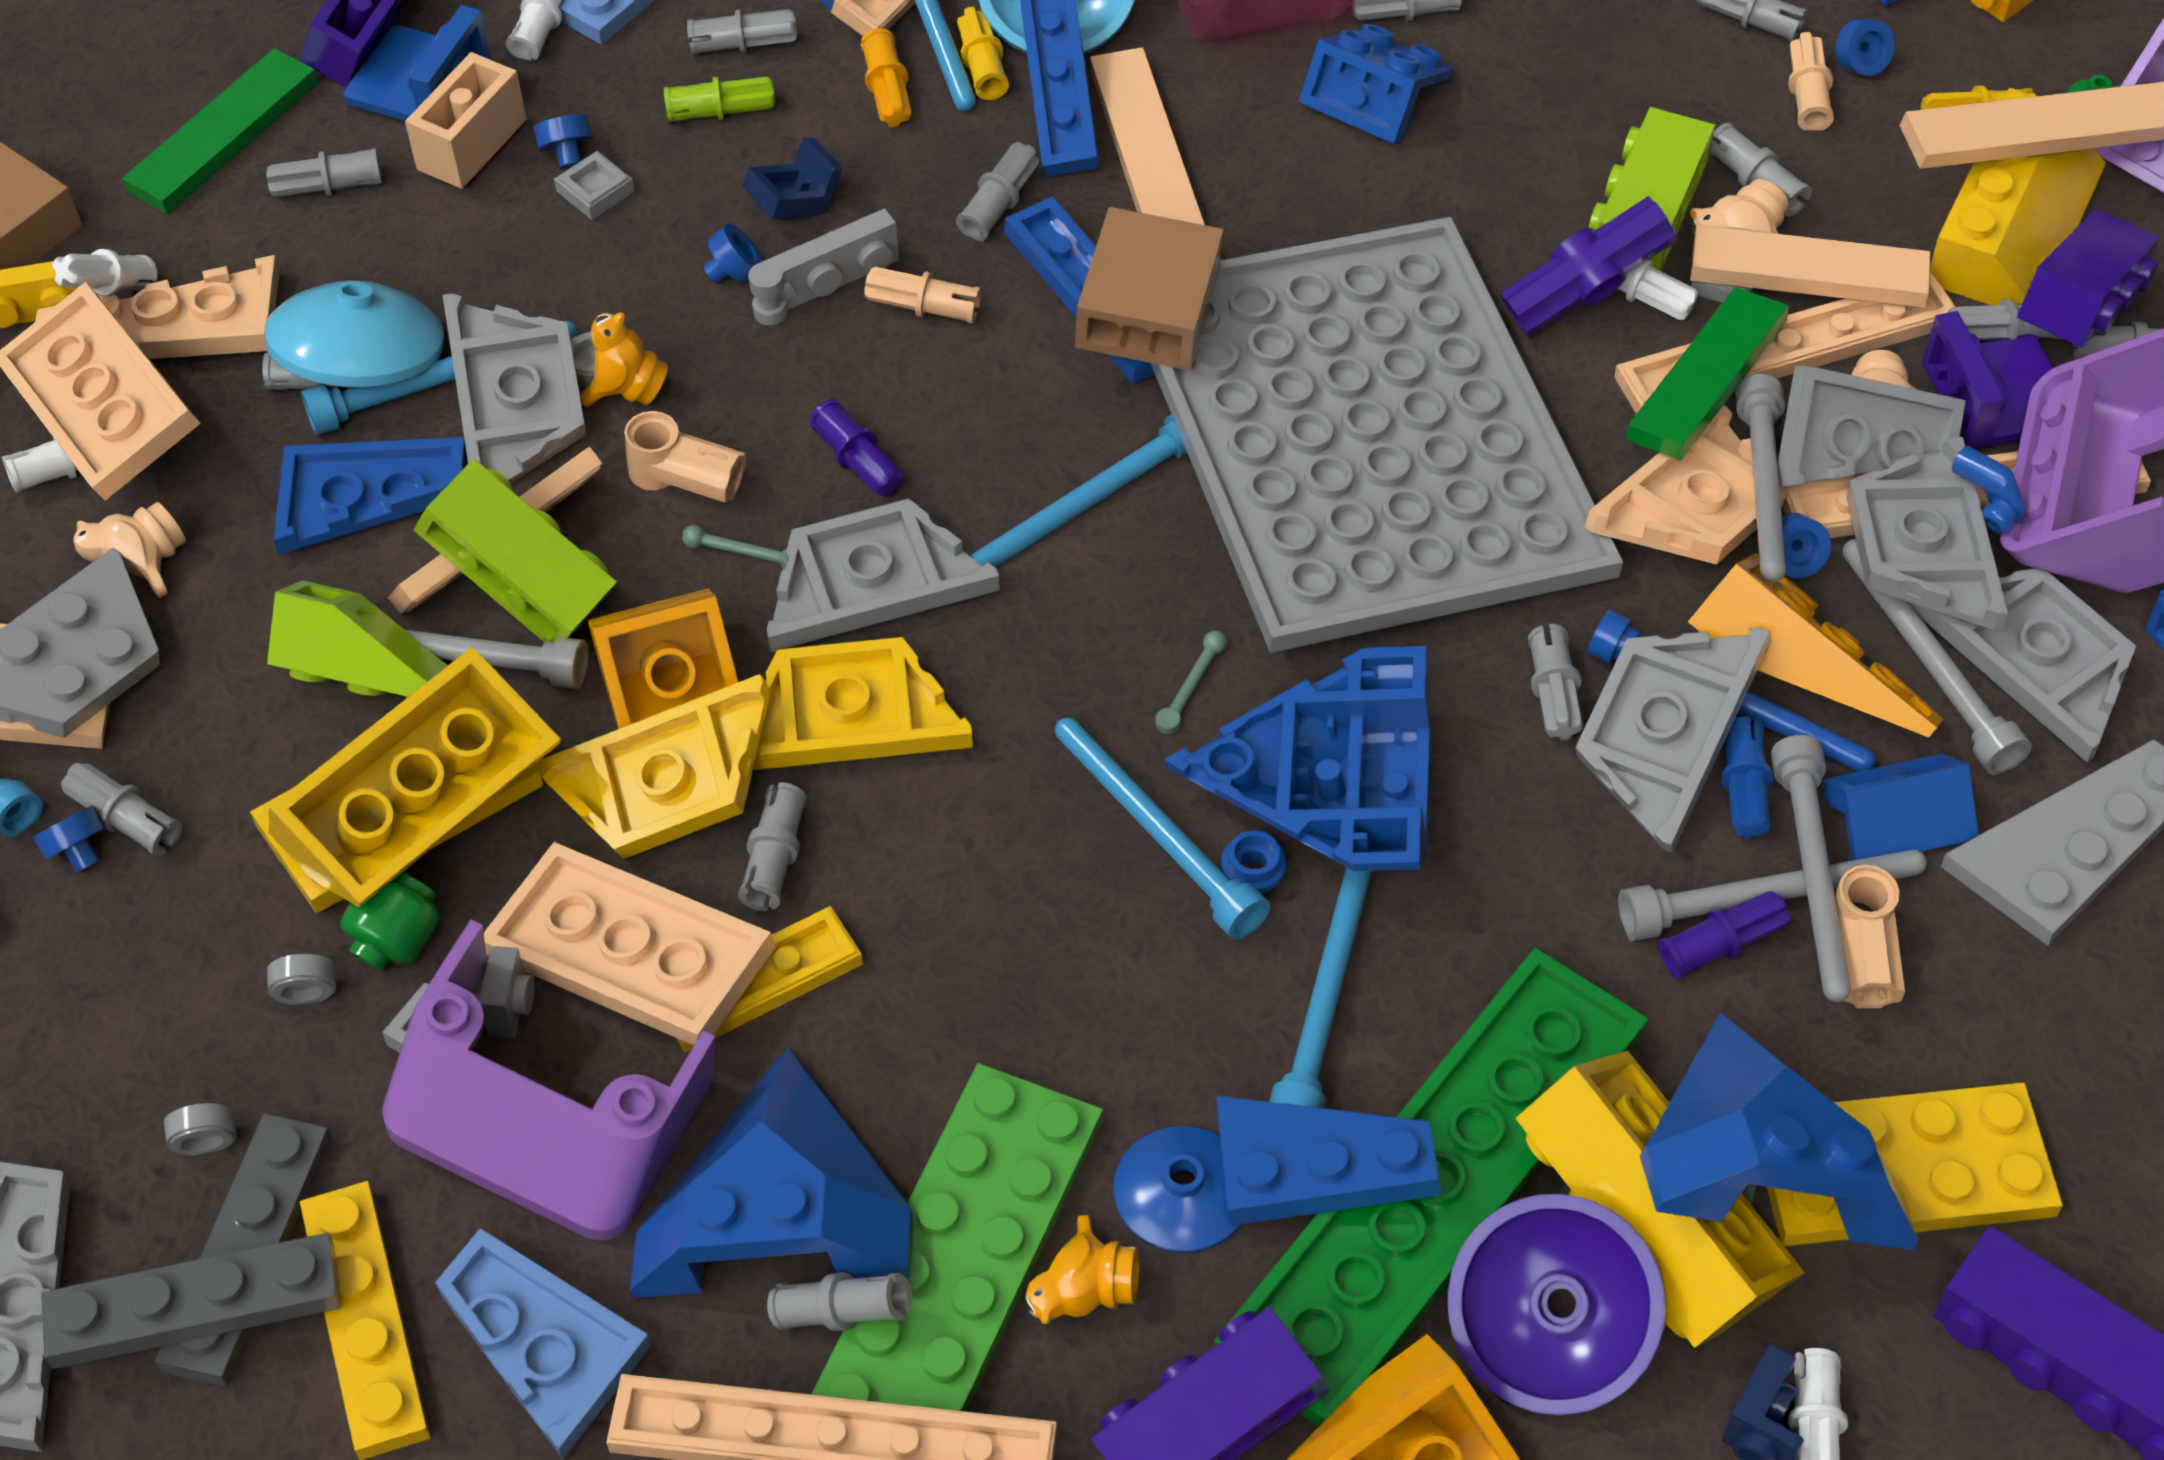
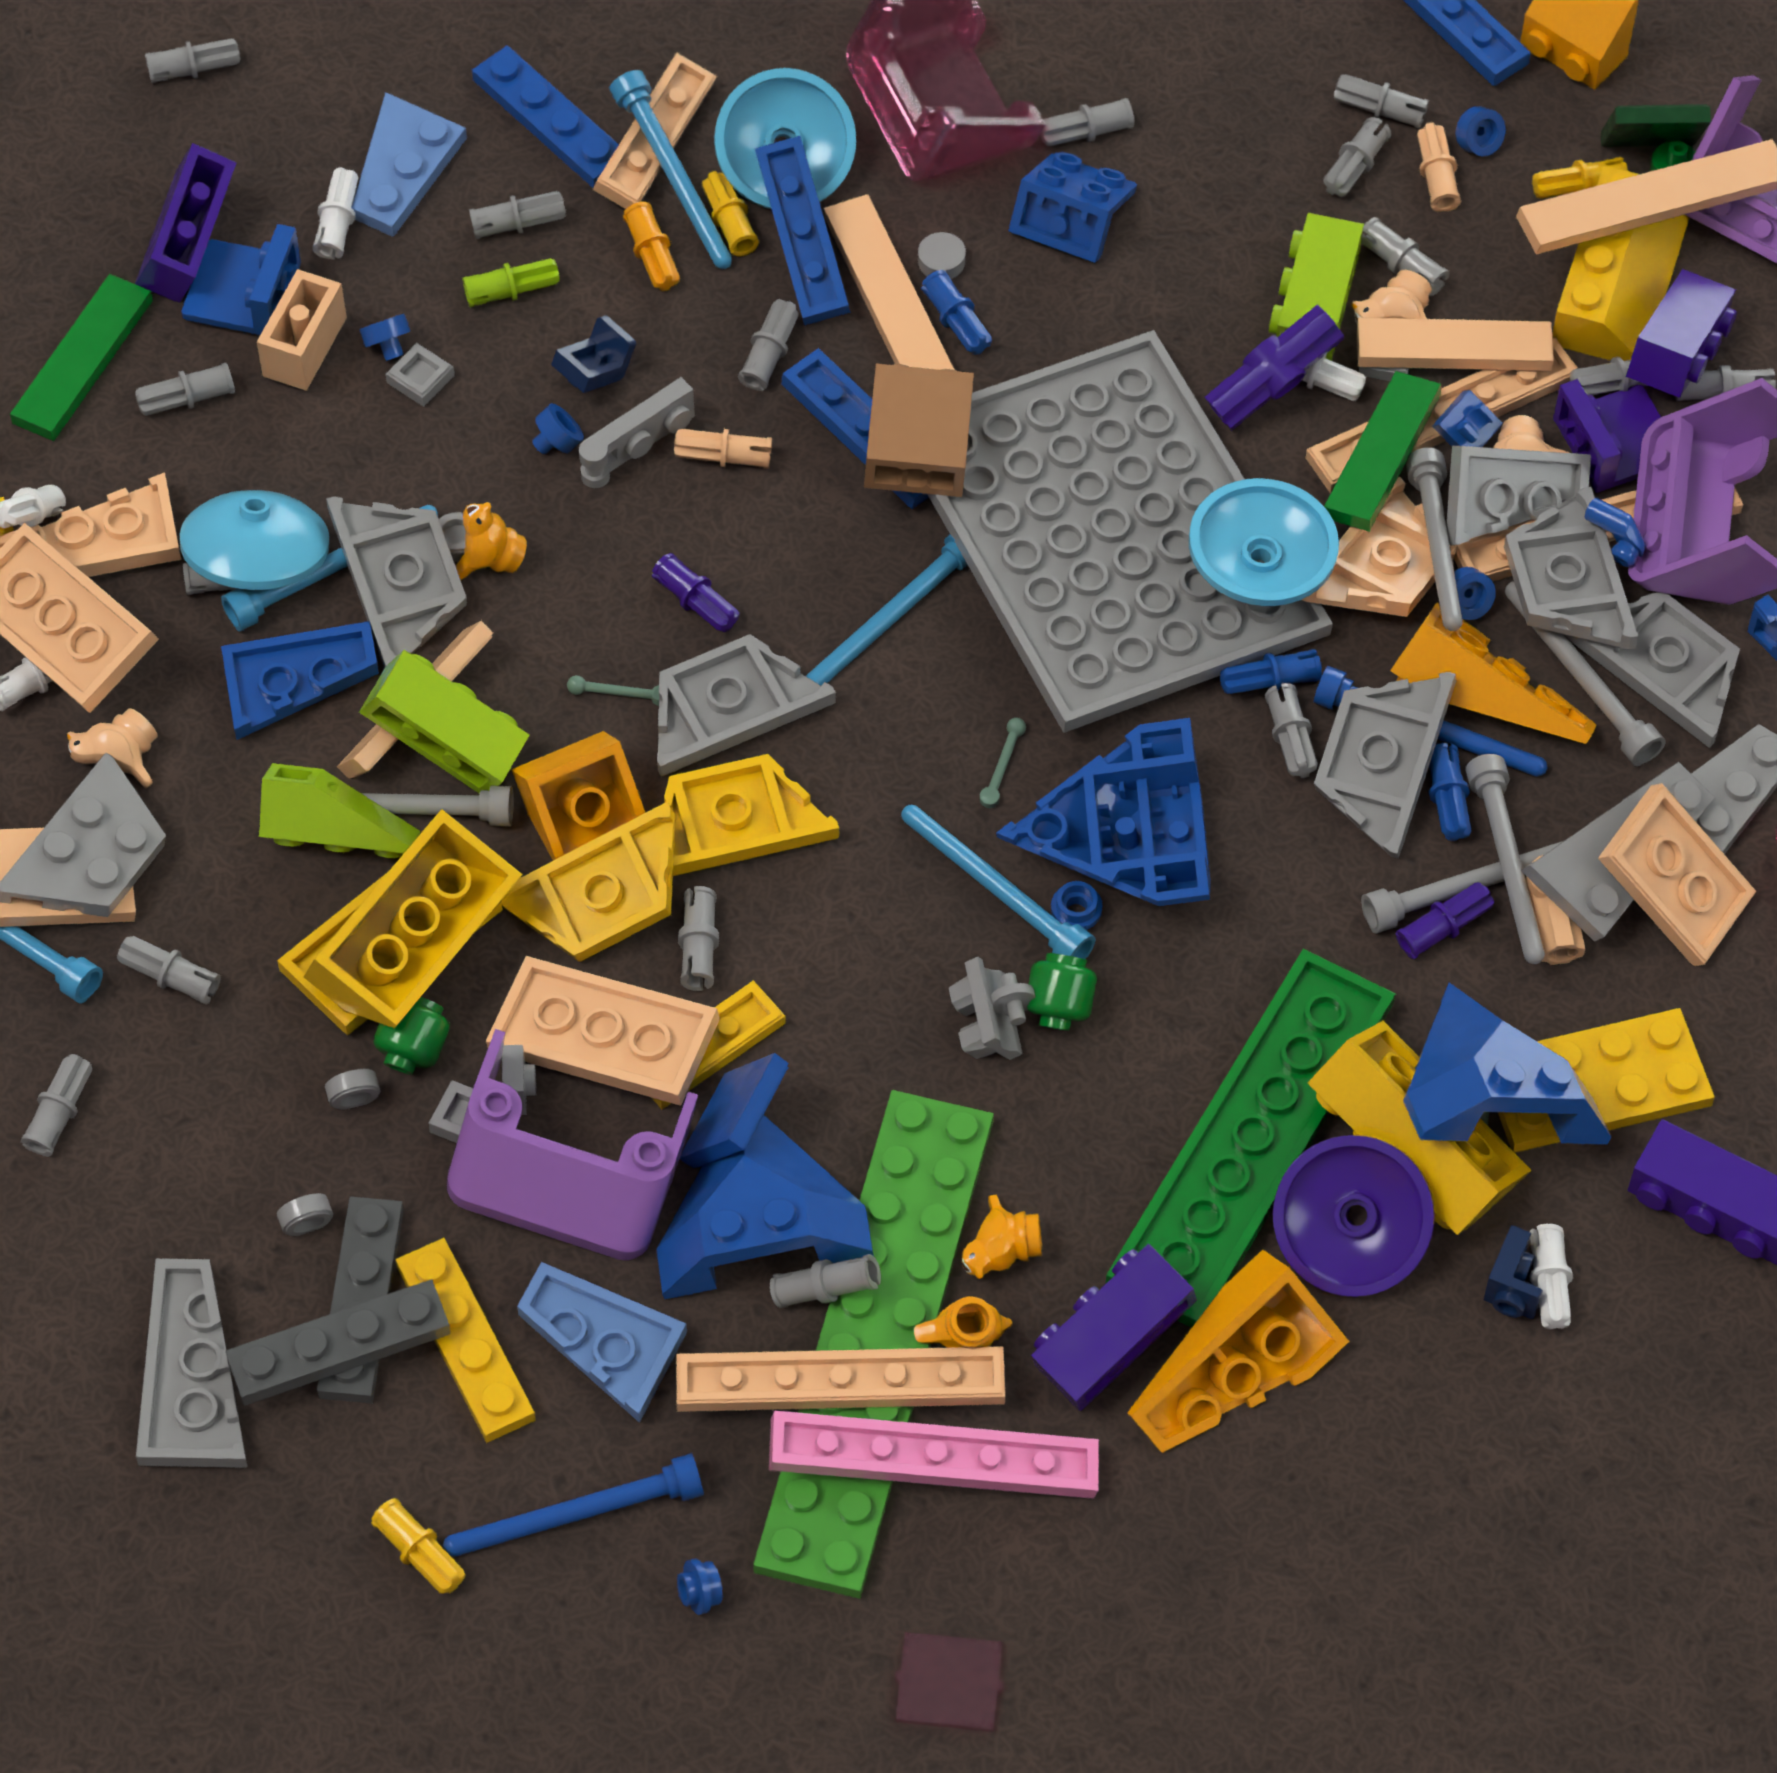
camera: 10 degrees left, 5 degrees up
(71, 837) = (137, 997): blue tile -> none
(665, 457) = (554, 620): light nougat piece -> none
(766, 1064) = (734, 1111): none -> blue tile
(1012, 1385) = (964, 1324): none -> light orange animal
(1128, 974) = (998, 1009): none -> light grey hips
(1168, 1213) = (1057, 1185): blue dish -> none
(1214, 963) = (1062, 990): none -> green head
(1216, 120) = (941, 252): none -> light grey tile
(1222, 177) = (956, 312): none -> blue axle
(1301, 1084) = (1139, 1087): dark azure piece -> none
(1319, 1159) = (1164, 1131): blue wing -> none
(1547, 453) = (1268, 524): none -> medium azure dish
(1567, 609) = (1272, 671): none -> blue axle
(1715, 62) = (1356, 157): none -> light grey axle
(1817, 346) = (1467, 422): none -> blue tile
(1905, 805) = (1568, 797): blue panel -> none
(1957, 876) = (1578, 879): none -> light grey wing
(2035, 910) = (1677, 874): none -> light nougat tile
(2074, 52) = (1655, 125): none -> dark green tile

